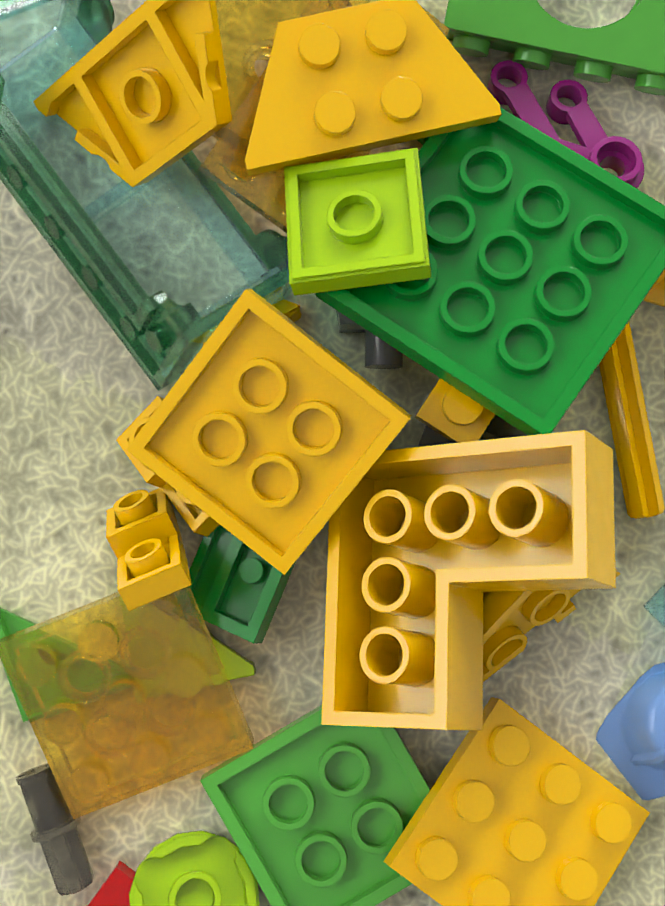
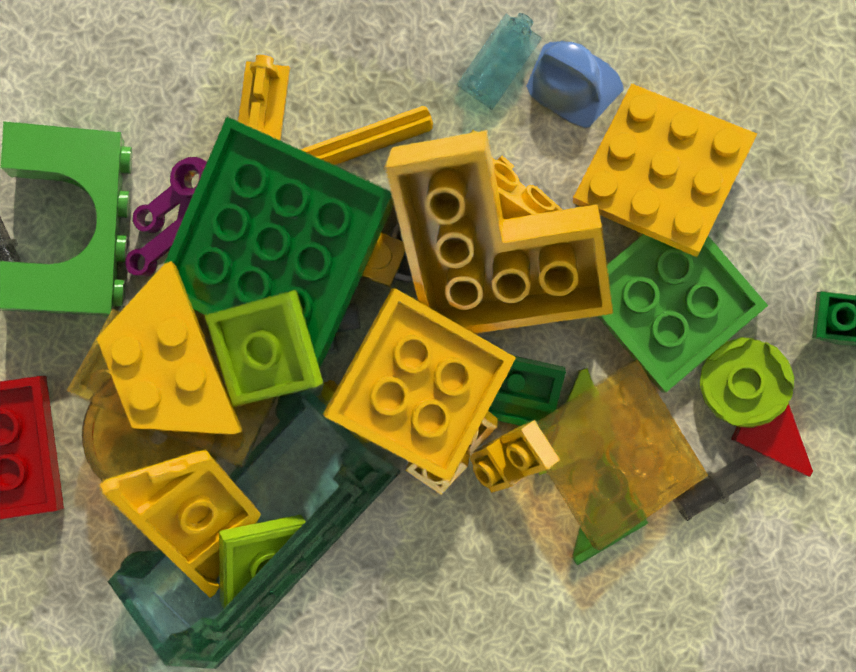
camera: 100 degrees left, 0 degrees up
(88, 164) = (248, 549): none -> lime tile

